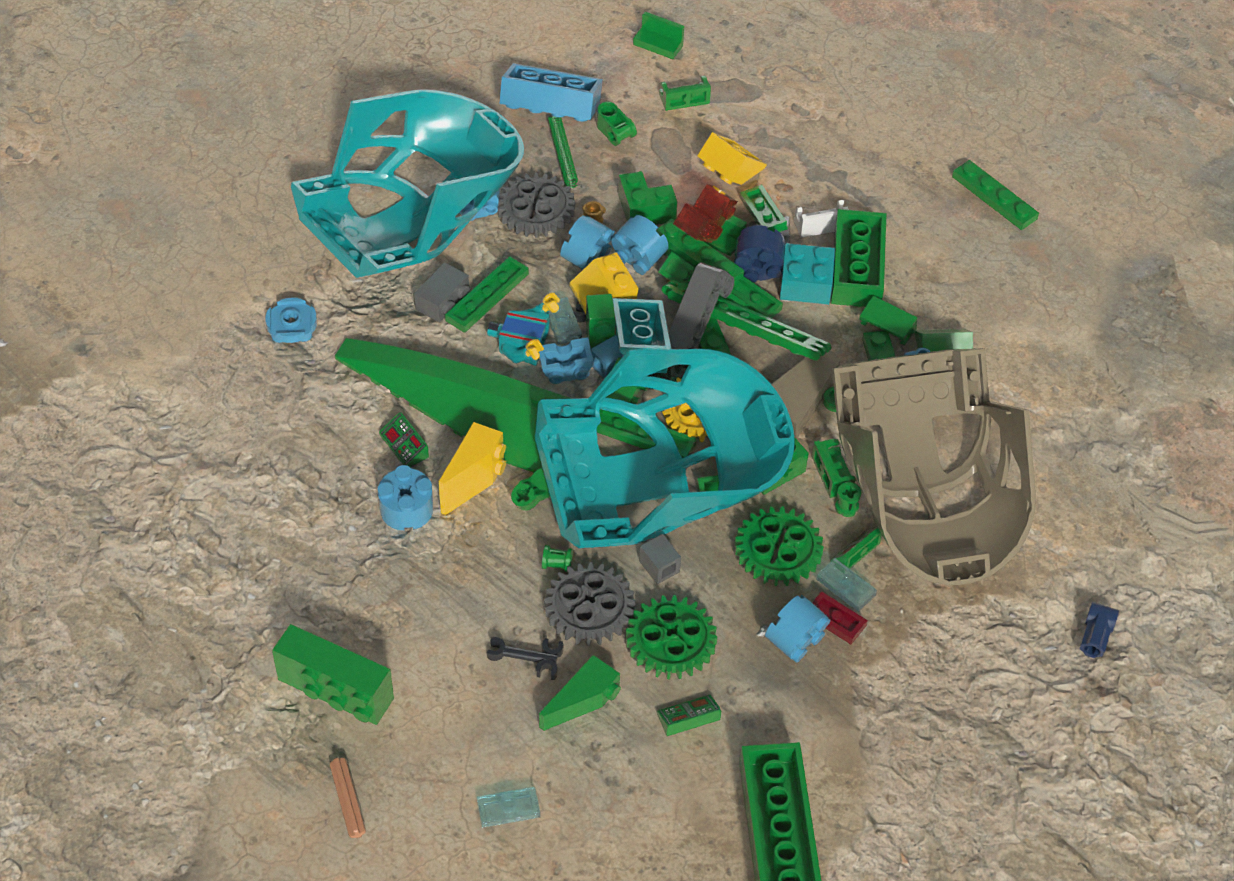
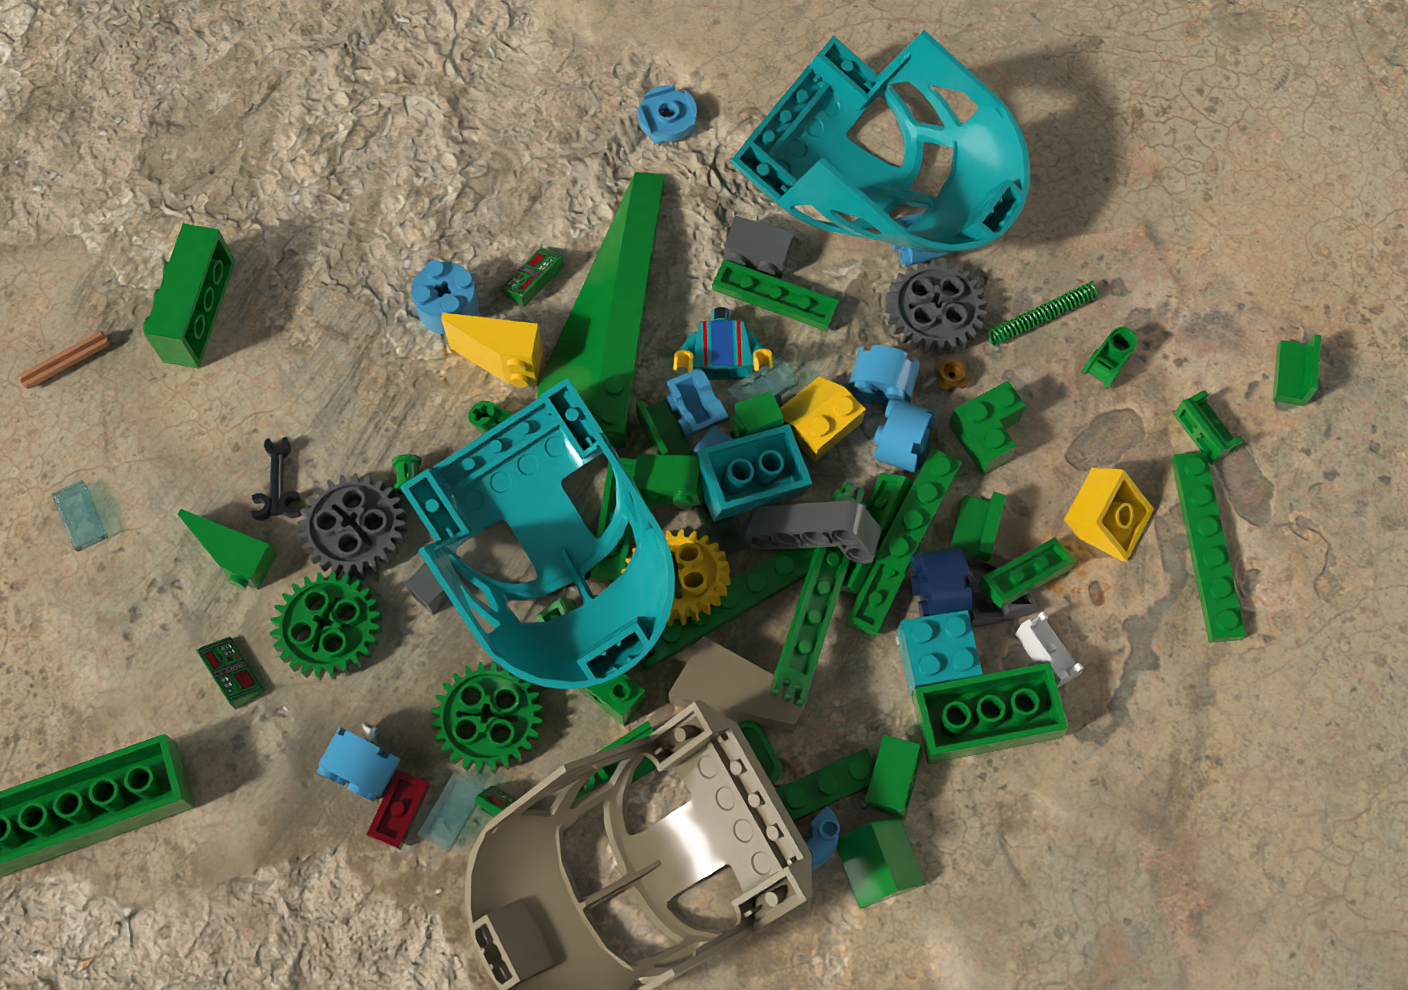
camera: 75 degrees right, 15 degrees up
(550, 92) = (1124, 266): dark azure brick -> none
(577, 387) = (662, 429): none -> green panel
(707, 215) = (968, 498): clear red brick -> none
(769, 121) = (1208, 548): none -> green plate
(995, 195) = (1197, 882): green plate -> none

